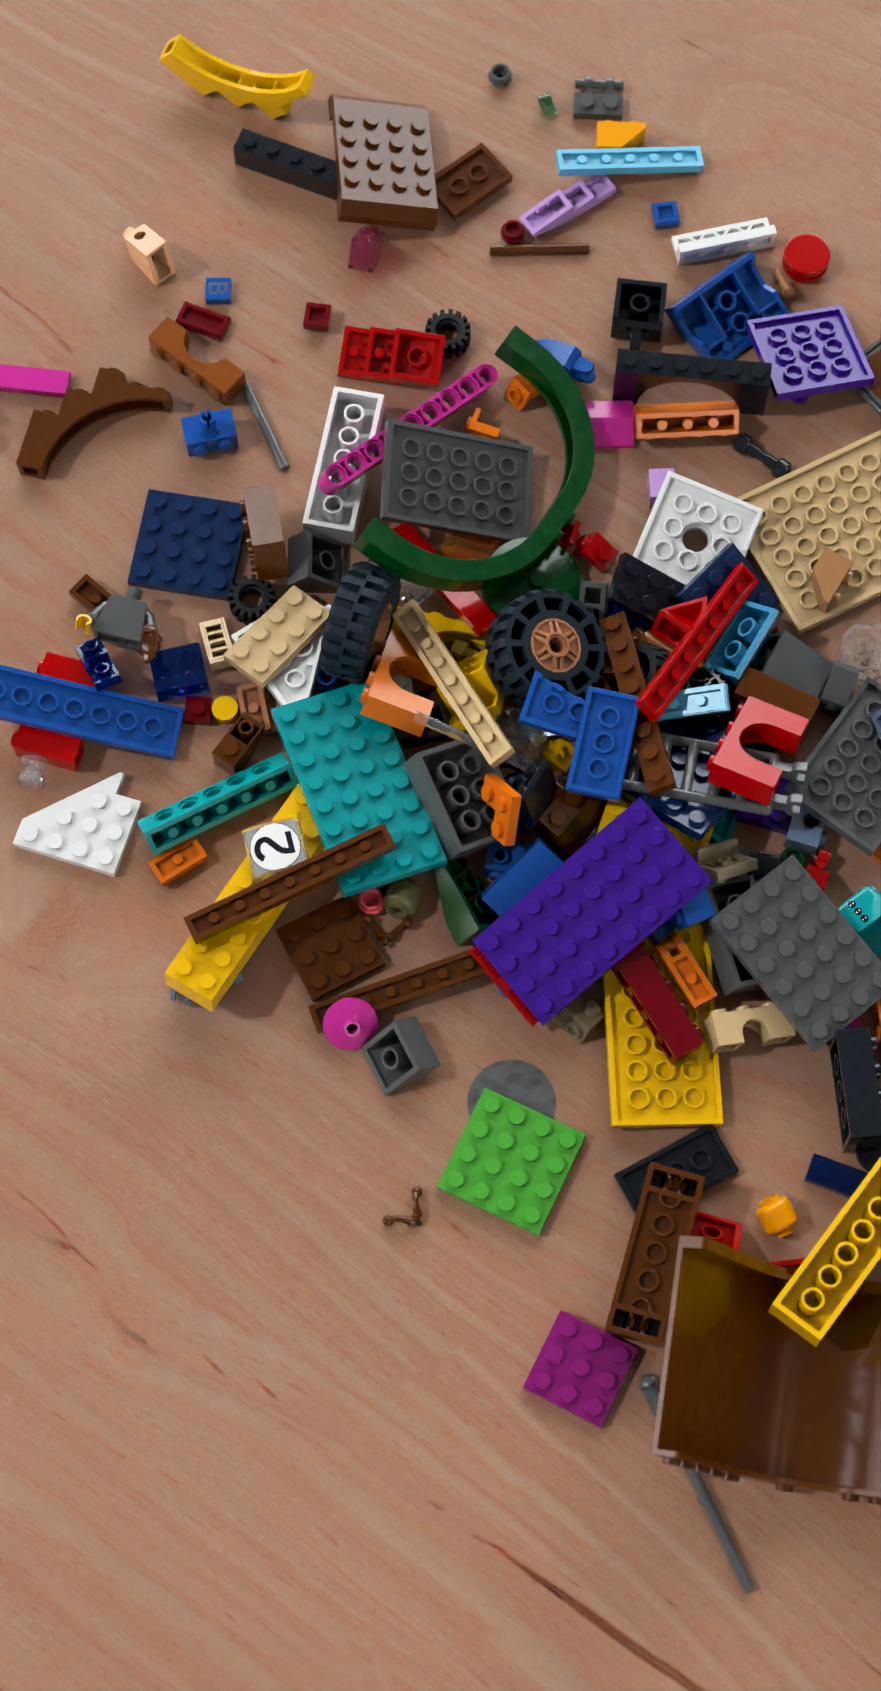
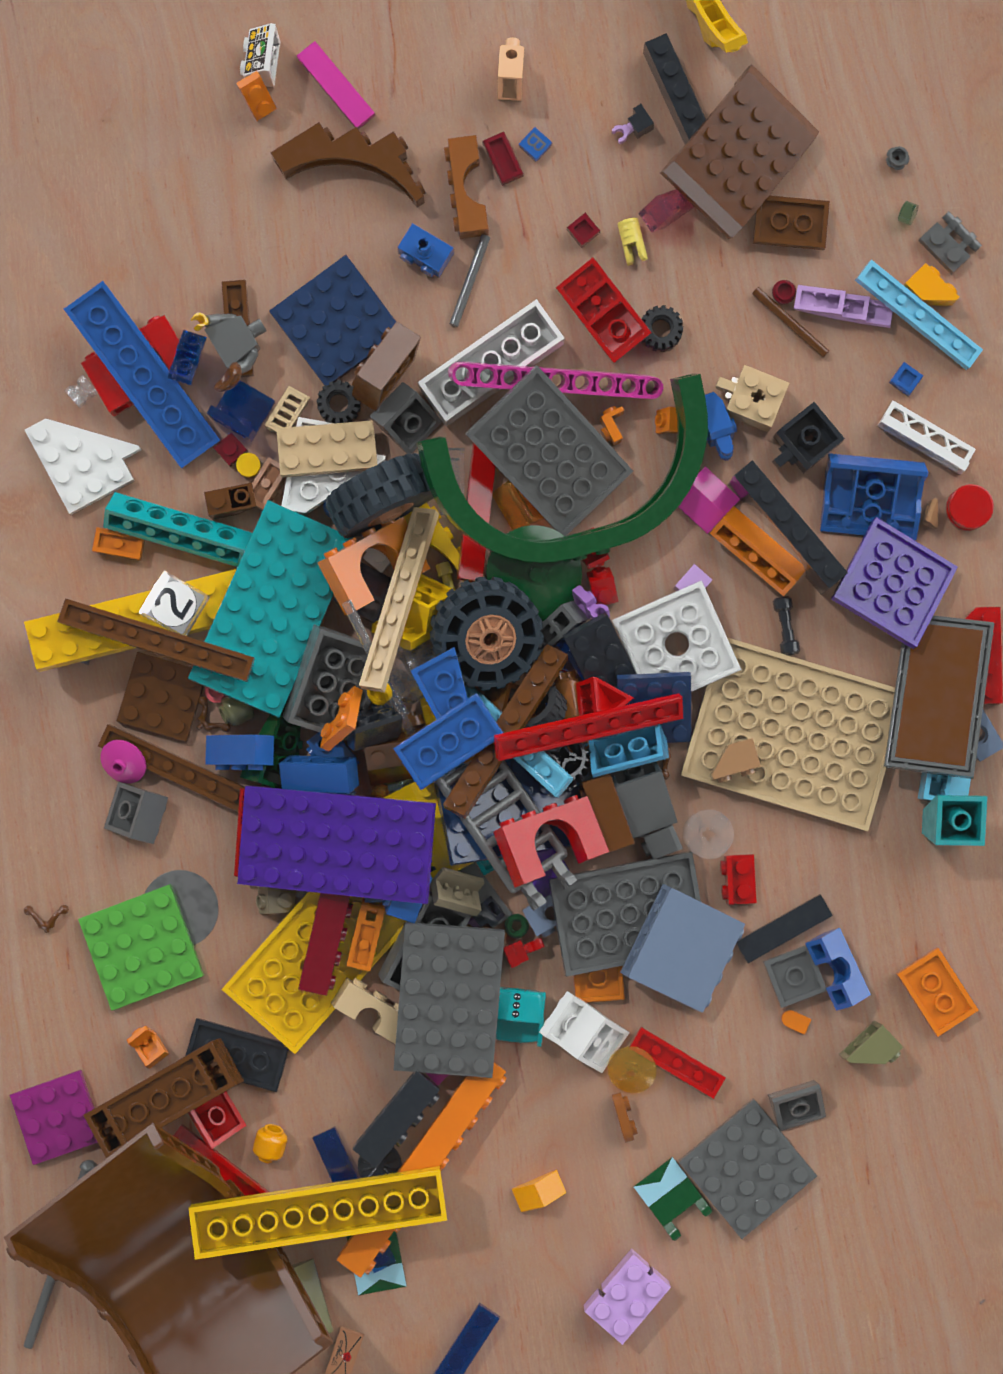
camera: 45 degrees right, 15 degrees up
(284, 210) = (638, 123): none -> black piece
(359, 290) = (632, 236): none -> light yellow hinge
(439, 920) = (239, 751): none -> blue brick
(509, 769) = (380, 698): none -> yellow tile
(569, 317) = (752, 383): none -> tan hinge
(597, 569) = (587, 603): none -> medium lavender plate
(598, 1233) = (148, 1046): none -> orange bracket

